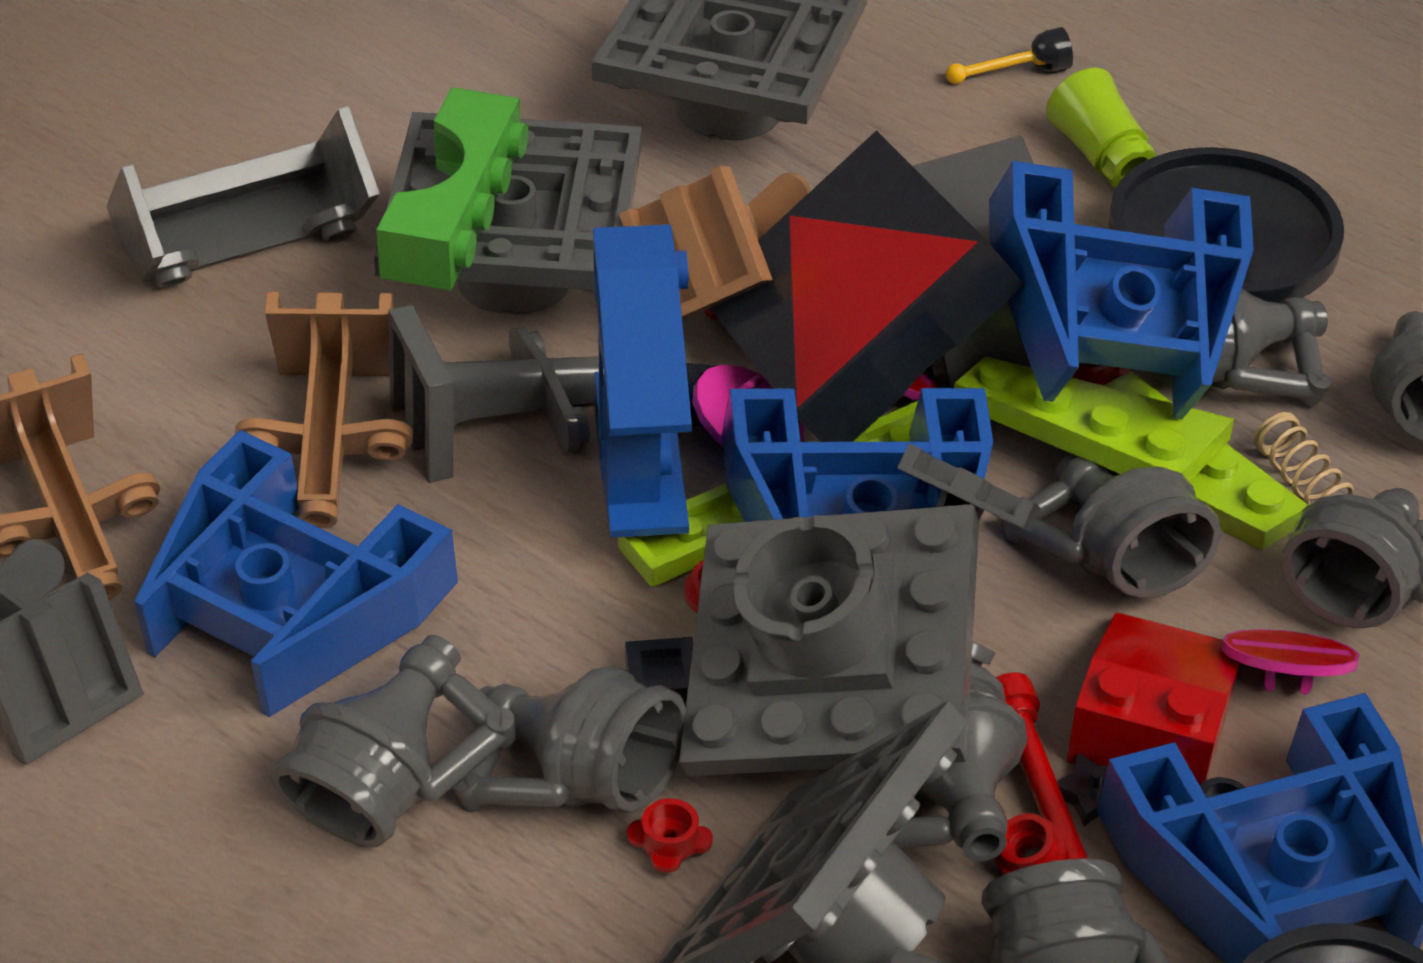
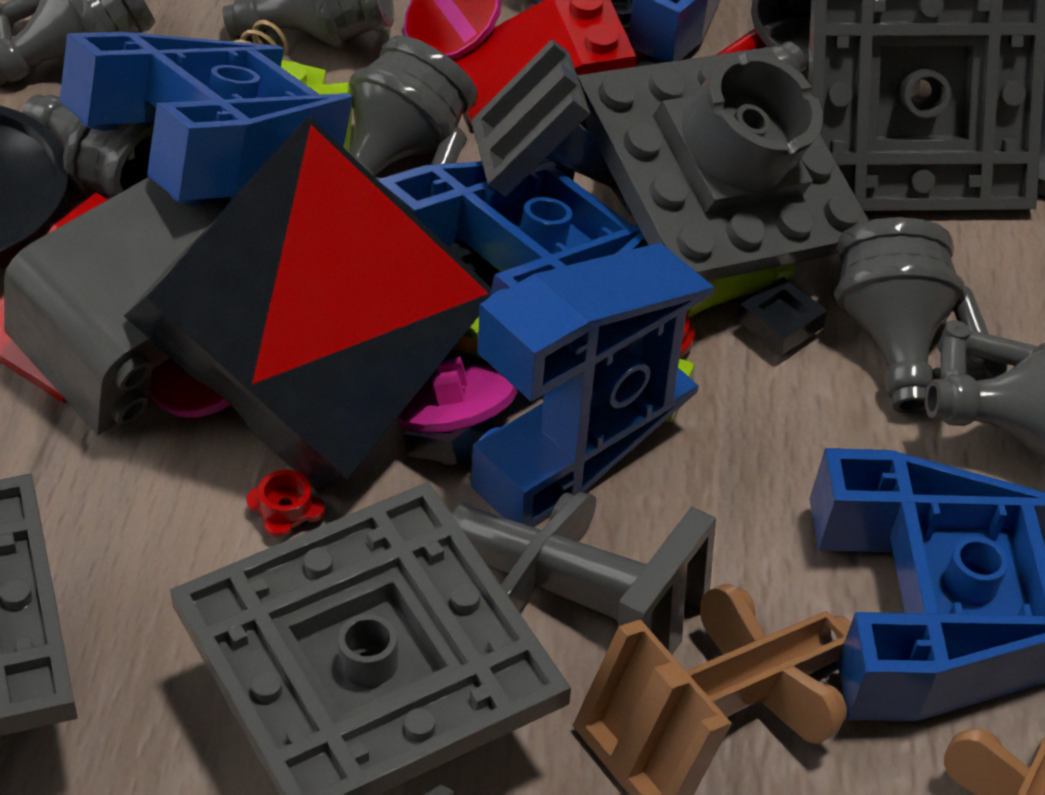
camera: 125 degrees left, 5 degrees up
(435, 229) = (522, 614): bright green arch -> none
(720, 232) = (333, 445): medium nougat piece -> none

